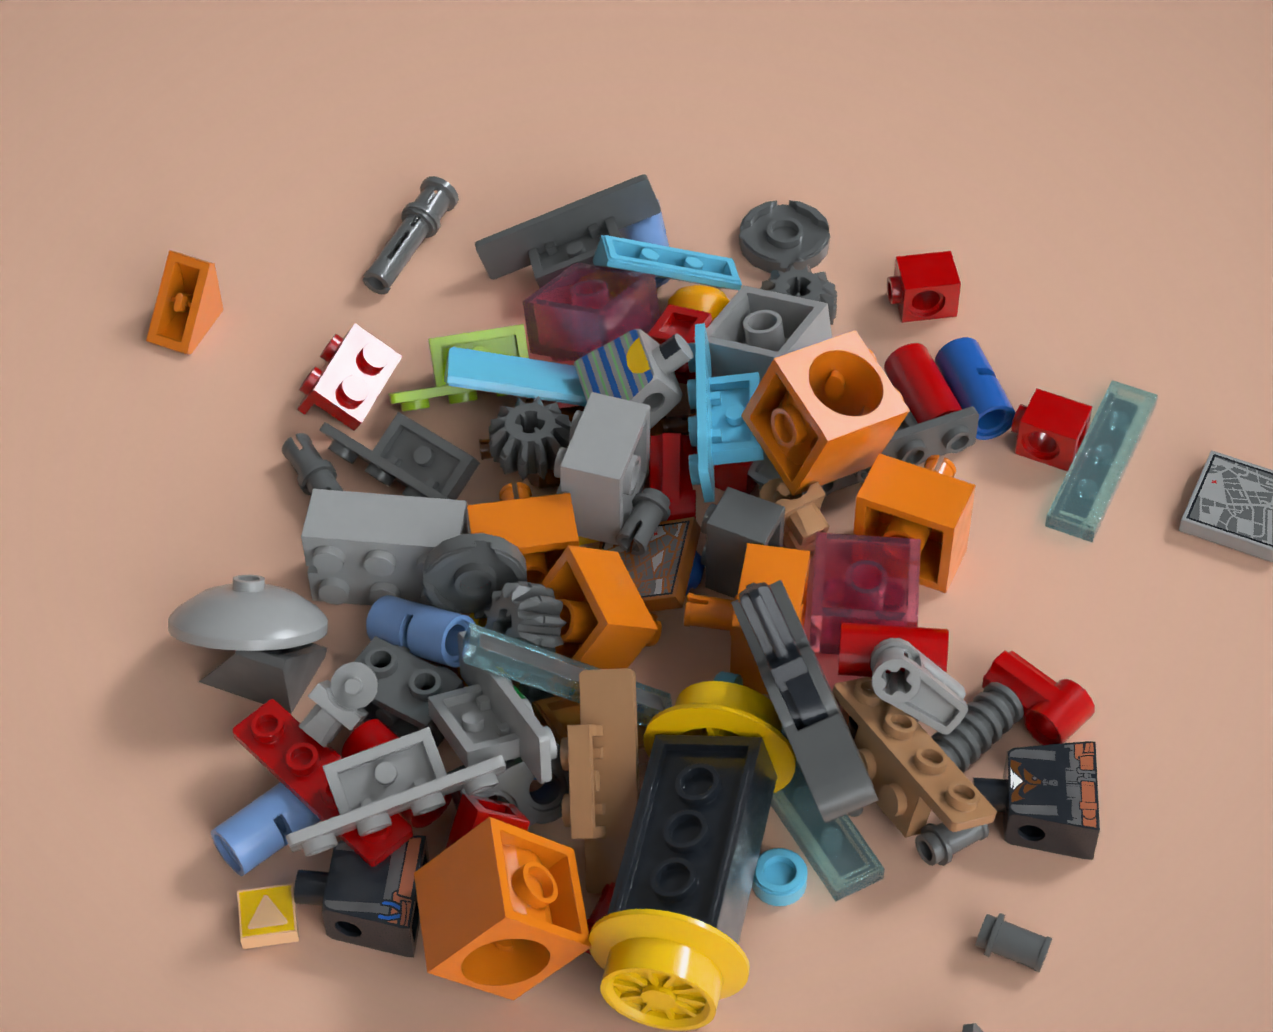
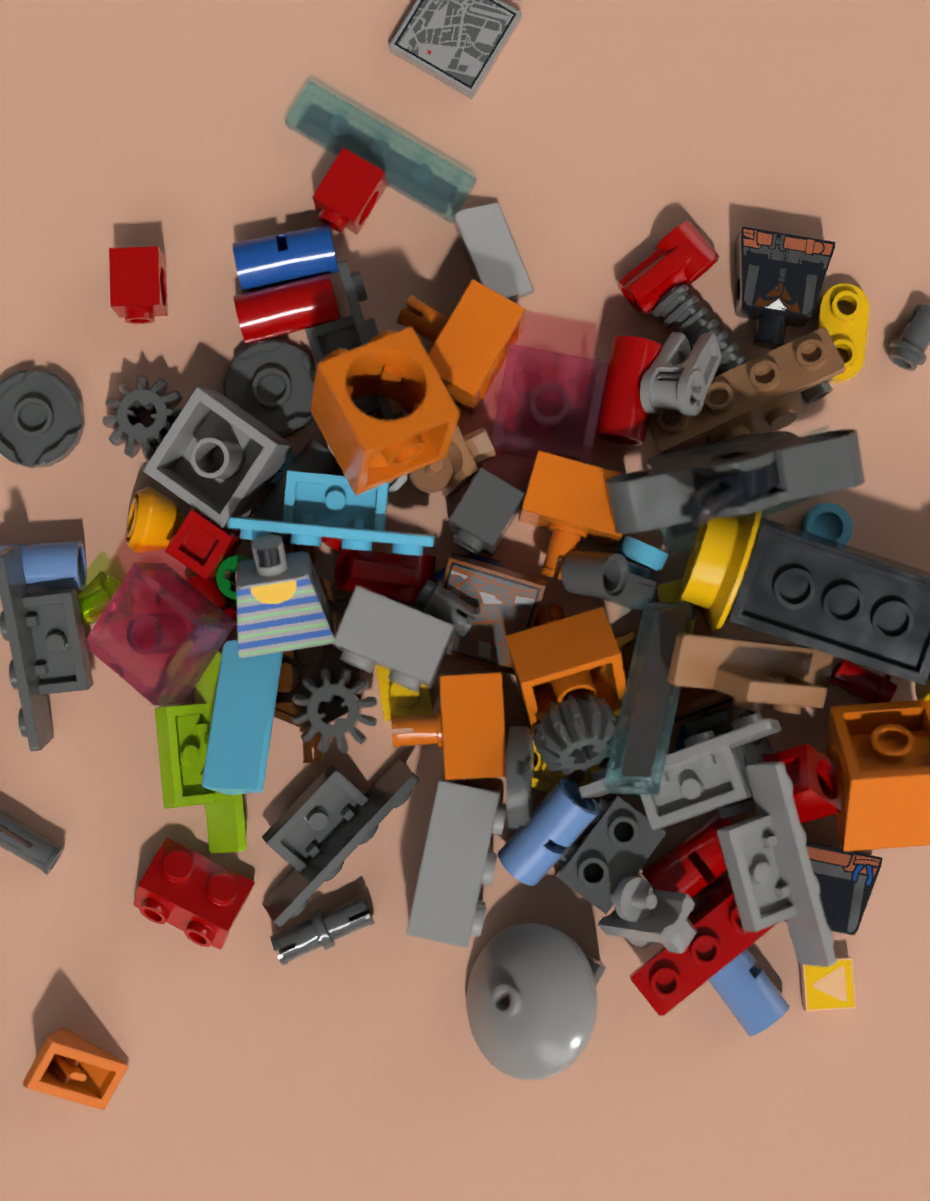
camera: 85 degrees left, 35 degrees up
(667, 262) = (97, 548): medium azure slope -> none
(690, 659) = (608, 578): none -> dark grey piece
(1004, 873) = (846, 330): none -> yellow plate
(1016, 550) = (492, 251): none -> light grey slope

